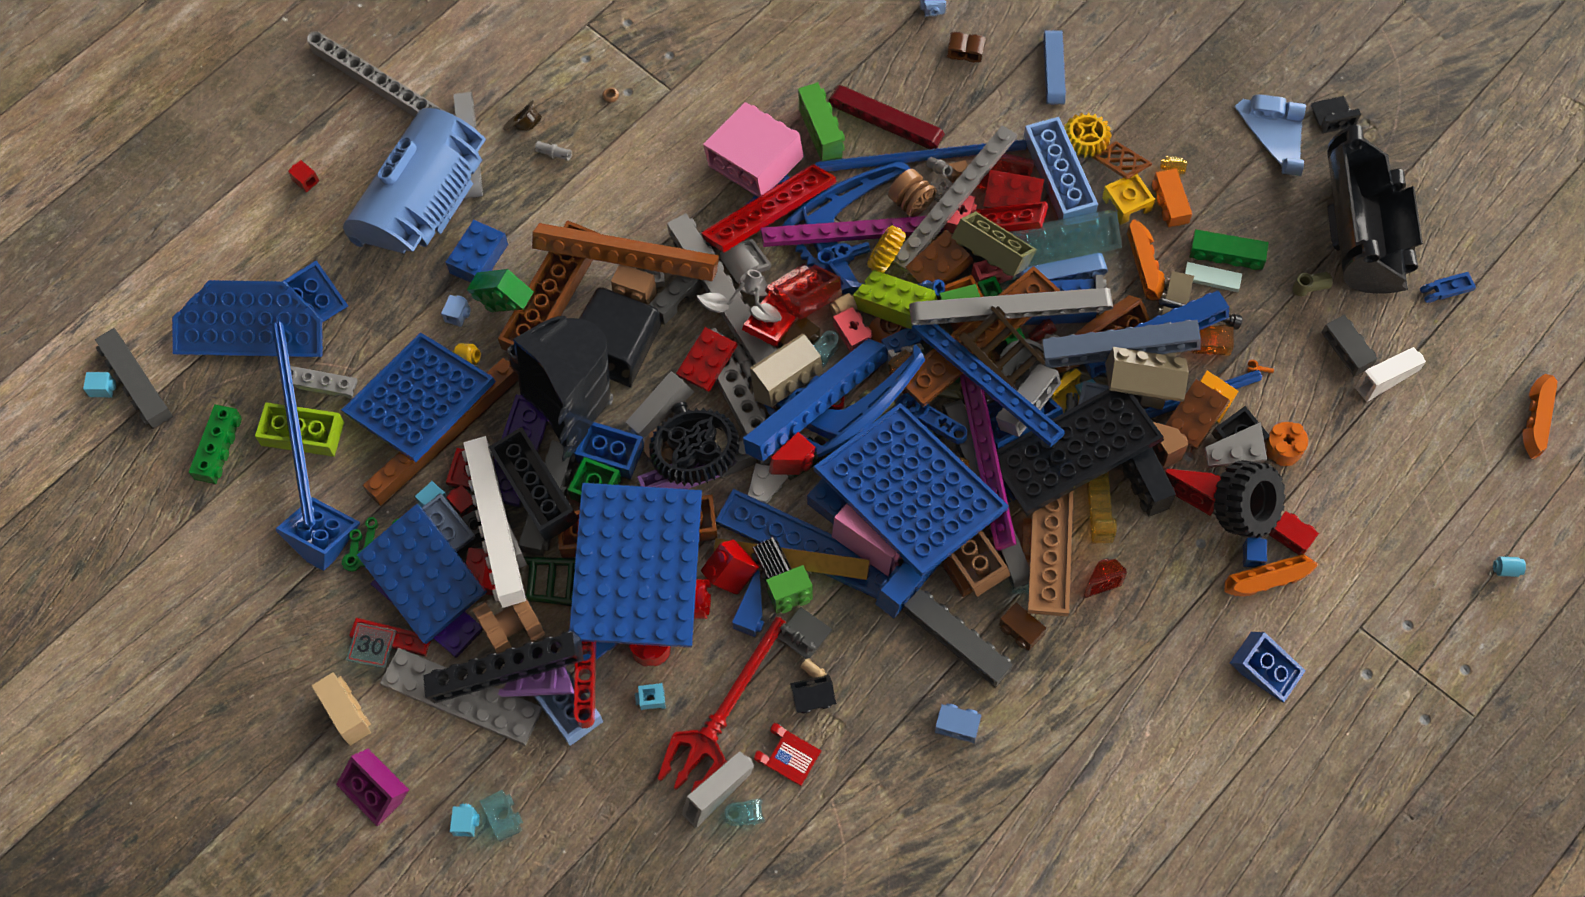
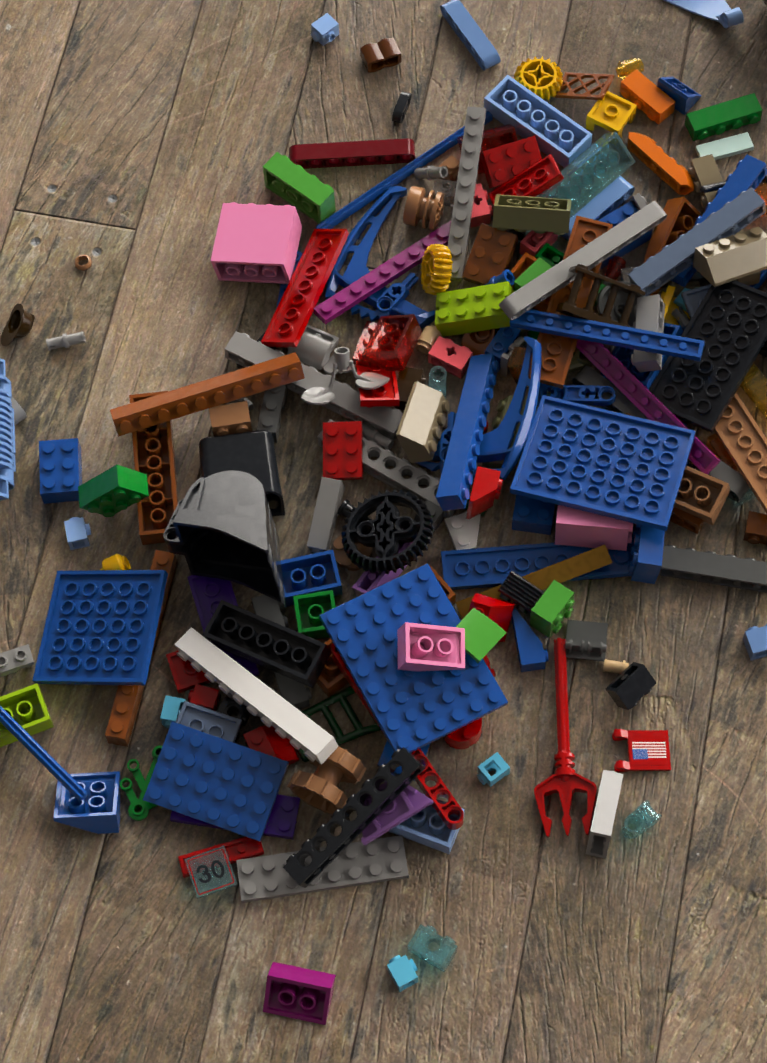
camera: 30 degrees left, 0 degrees up
(342, 708) = (226, 940): tan brick -> none
(651, 562) = (430, 647): none -> bright pink slope
(699, 573) = (480, 634): none -> bright green slope
(954, 99) = (401, 107): none -> black beam
(1203, 208) = (679, 92): none -> blue slope

